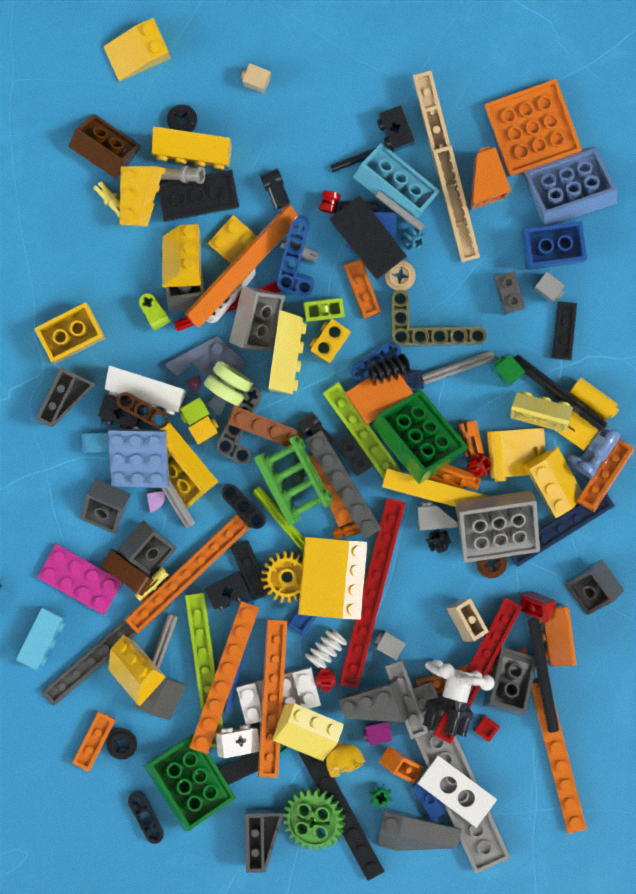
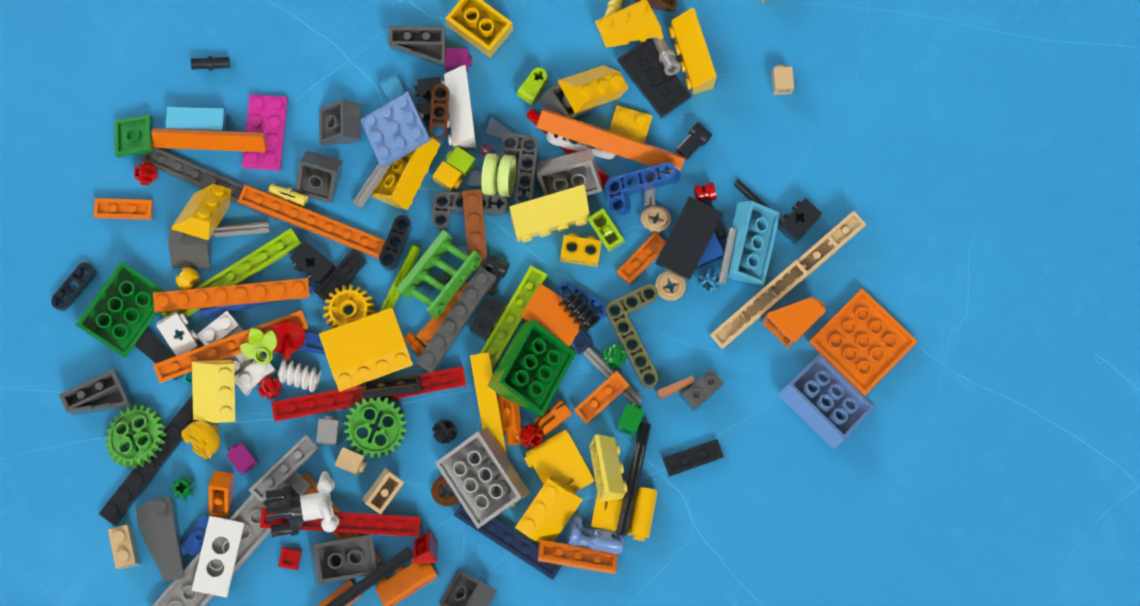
camera: 60 degrees right, 10 degrees down
(28, 702) = (133, 136): none -> green plate
(66, 634) = (209, 140): none -> orange tile
(69, 706) = (145, 173): none -> red gear
(95, 369) = (457, 57): none -> magenta brick
(124, 752) = (127, 228): black gear -> none
(126, 572) = (288, 166): reddish brown beam -> none
(156, 500) = (365, 165): lavender tile -> none
(181, 111) = (721, 31): black gear -> none
(189, 710) = (187, 278): none -> yellow piece
(234, 360) = (524, 155): none -> dark grey beam
(283, 672) = (260, 342): none -> lime plate
(288, 645) = (289, 337): none -> red shield
(332, 250) = (650, 213): none -> tan gear
(376, 703) = (267, 442): dark grey wedge -> none
(378, 570) = (391, 387): none -> black tile
(393, 612) = (358, 420): none -> bright green gear
(409, 870) = (124, 547): none -> tan brick
(426, 636) = (351, 461): none -> tan brick
(433, 517) = (463, 416): light grey slope -> none
(442, 356) = (614, 355): none -> green gear
(474, 386) = (602, 397): none -> orange plate
(495, 315) = (676, 387): none -> nougat tile
(549, 287) = (725, 424): light grey brick -> none
(554, 245) = (765, 409): blue brick -> none

